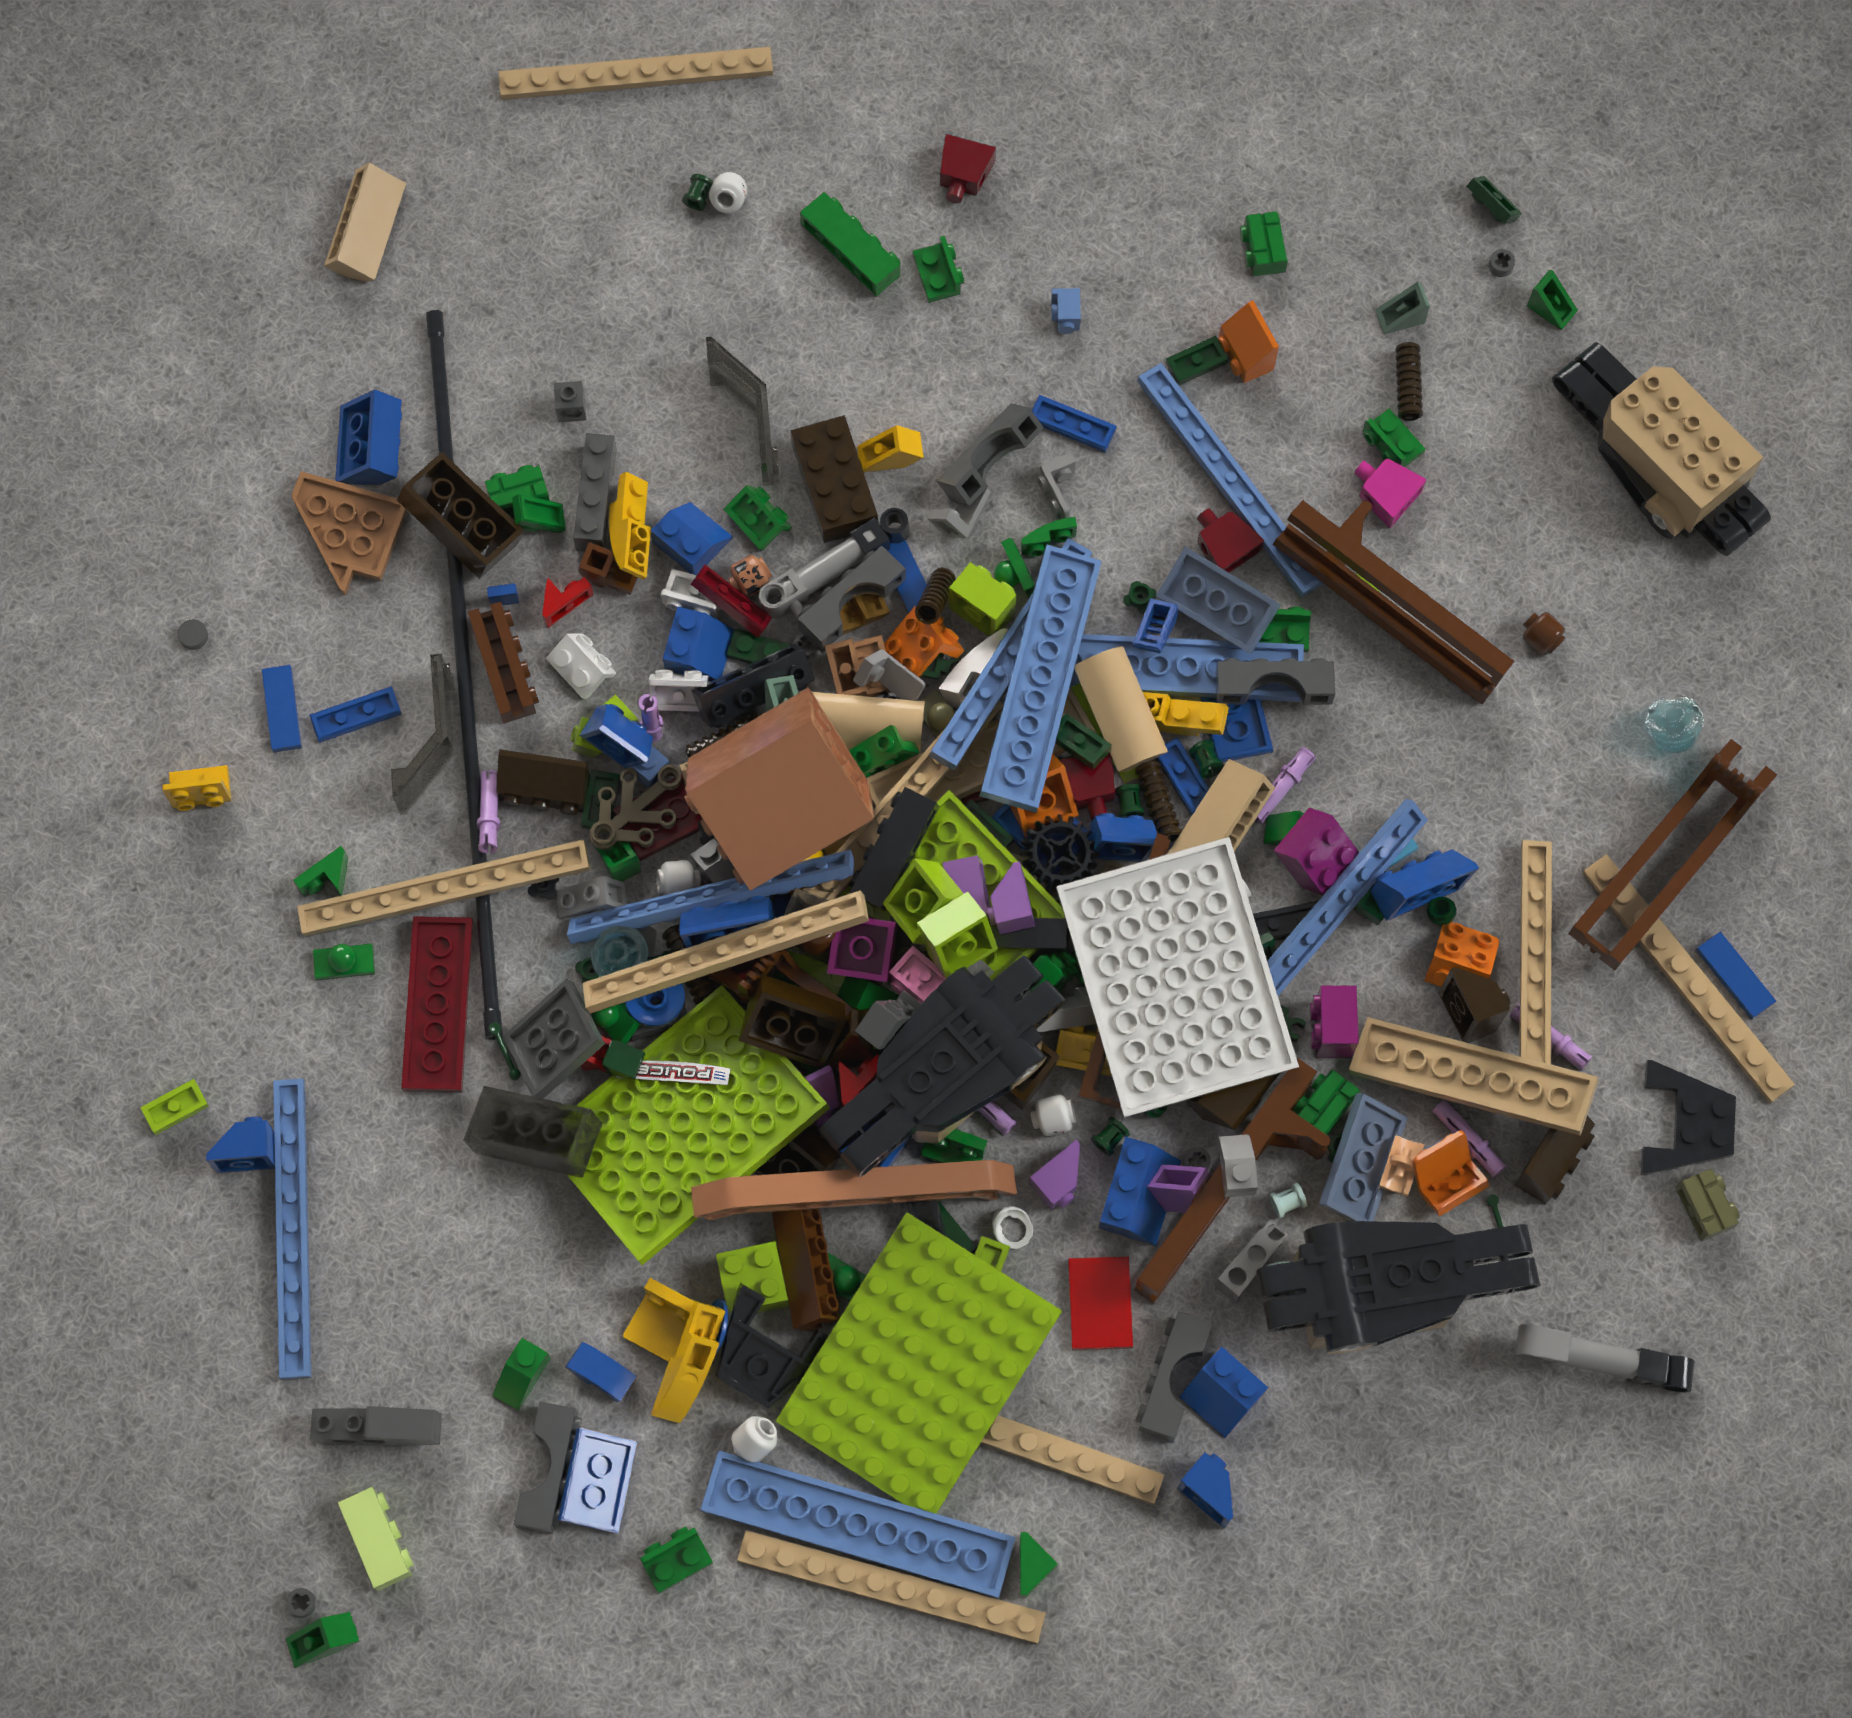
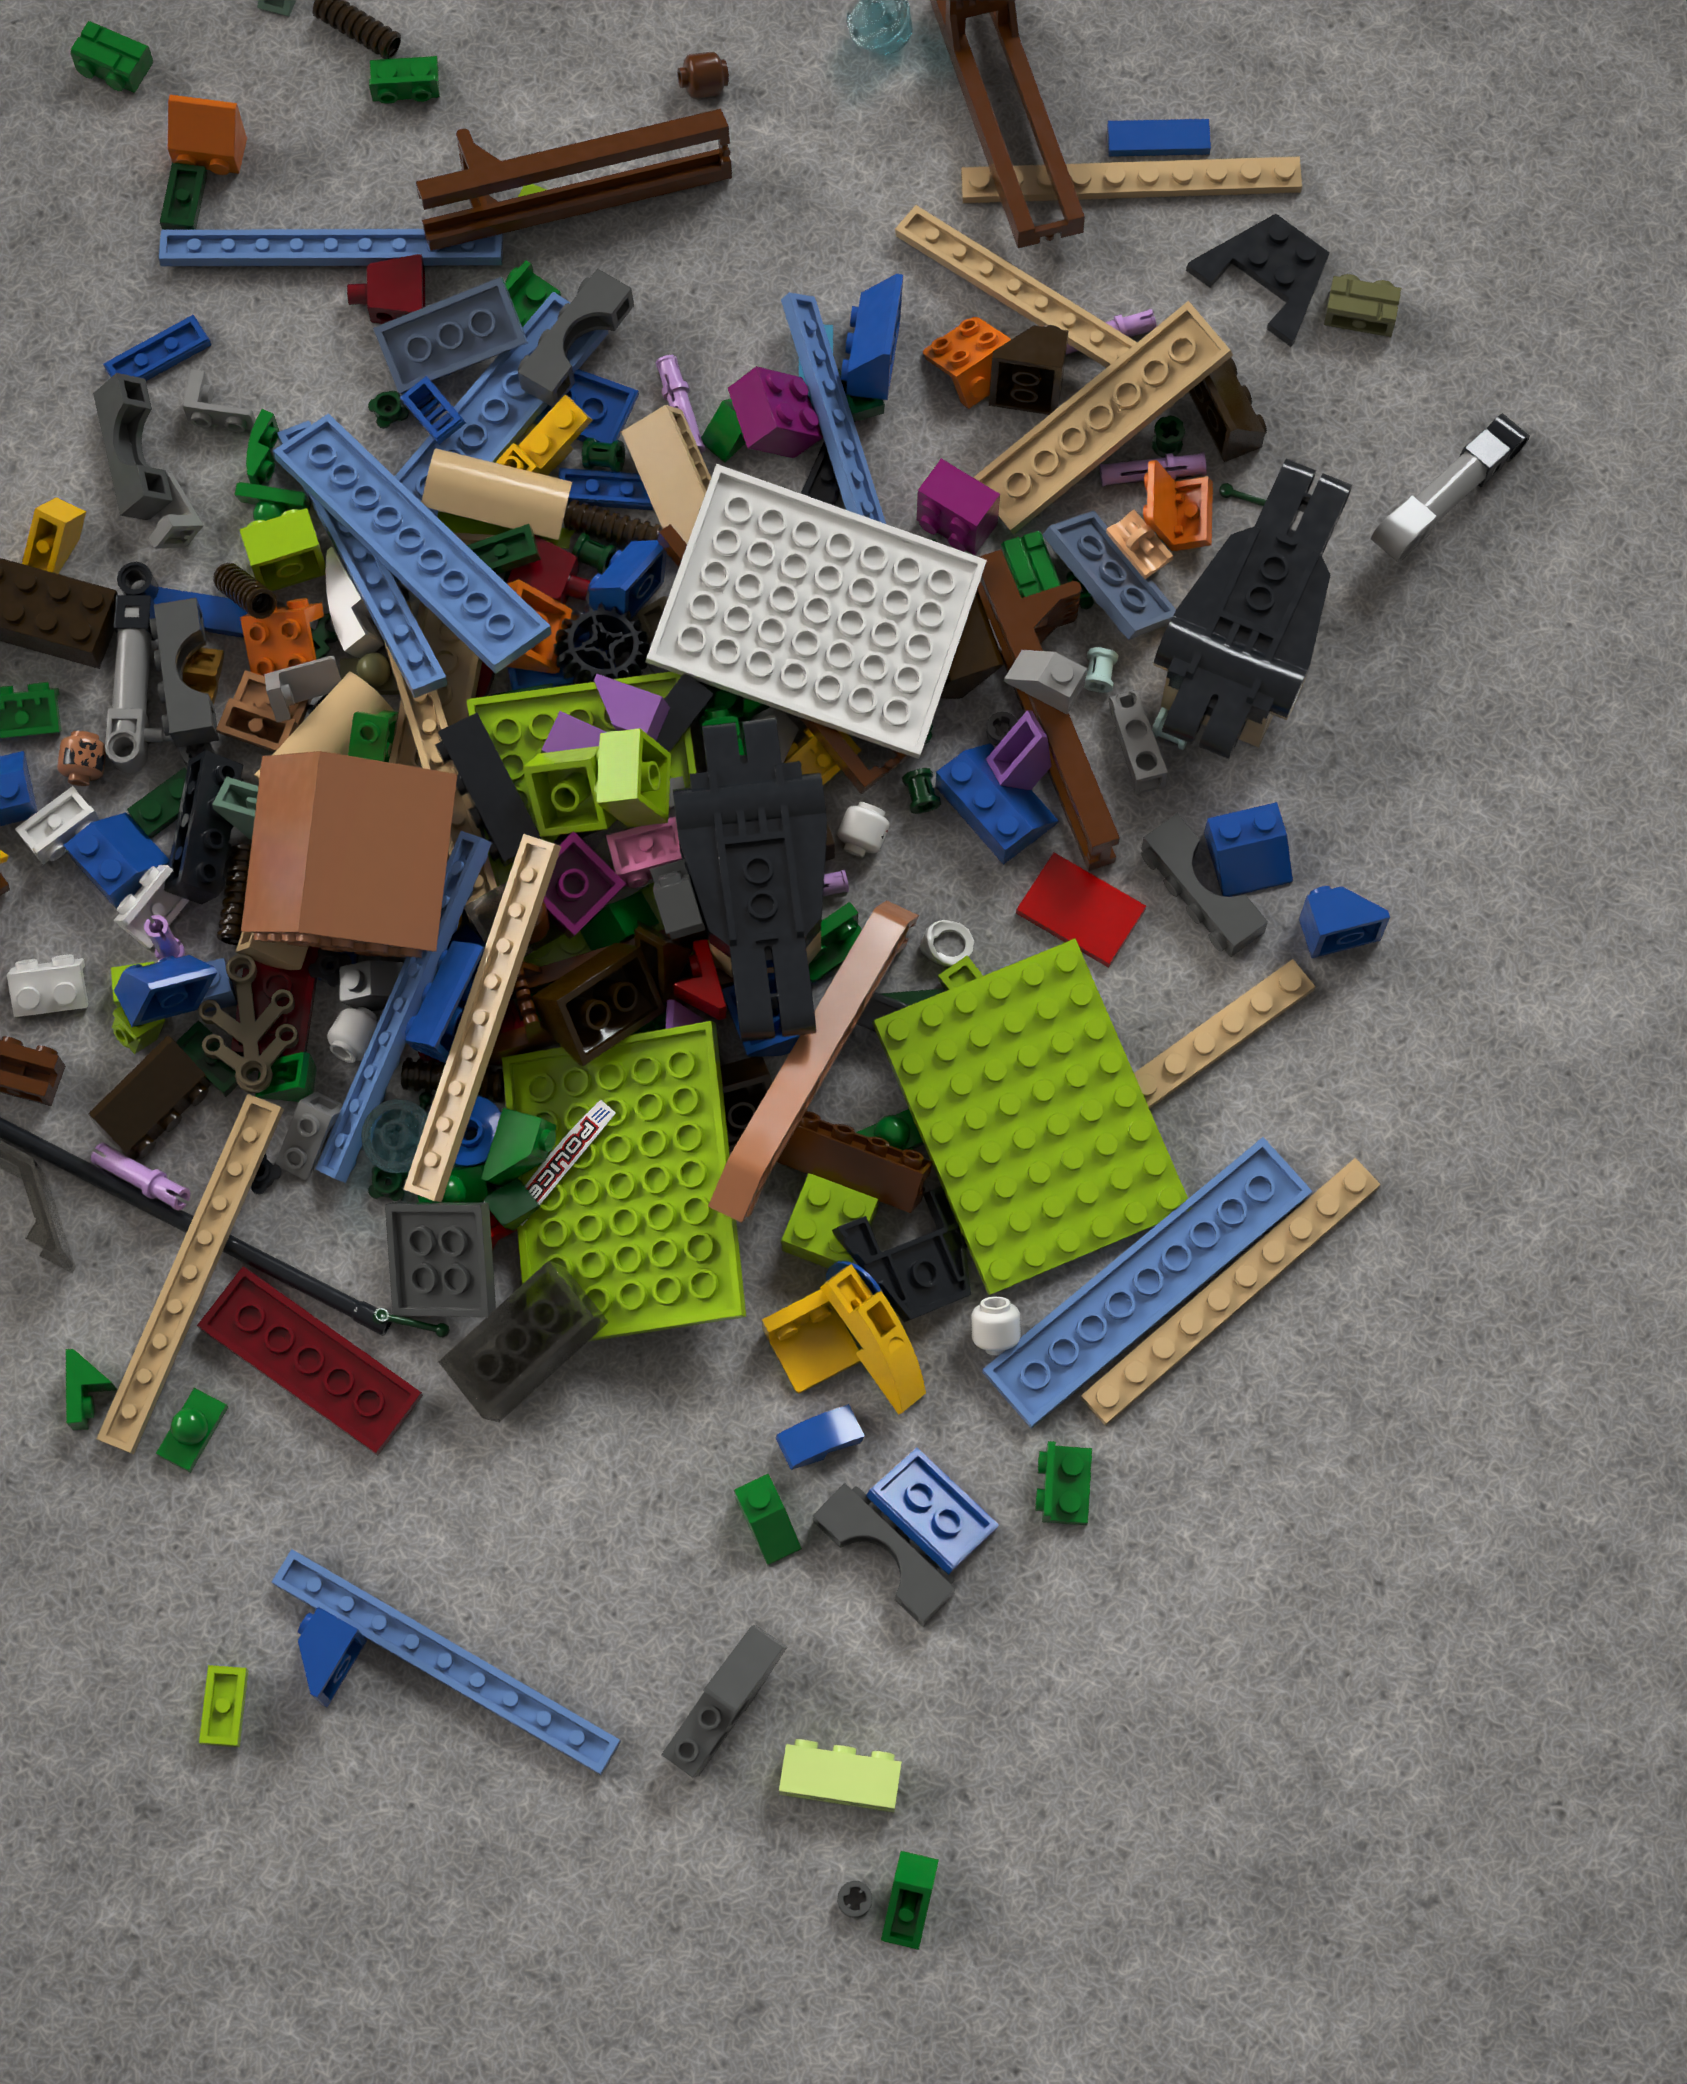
camera: 55 degrees left, 0 degrees up
(663, 1036) = (517, 1146): none -> green slope
(731, 601) = (96, 790): dark red tile -> none
(1034, 1564) = (1301, 1138): green slope -> none
(1058, 1178) = (930, 864): medium lavender slope -> none
(1066, 309) = (34, 279): medium blue brick -> none
(1389, 489) = (450, 108): dark pink torso -> none
(1441, 911) = (911, 347): dark green plate -> none
(1495, 1138) = (1163, 428): none -> dark green bush

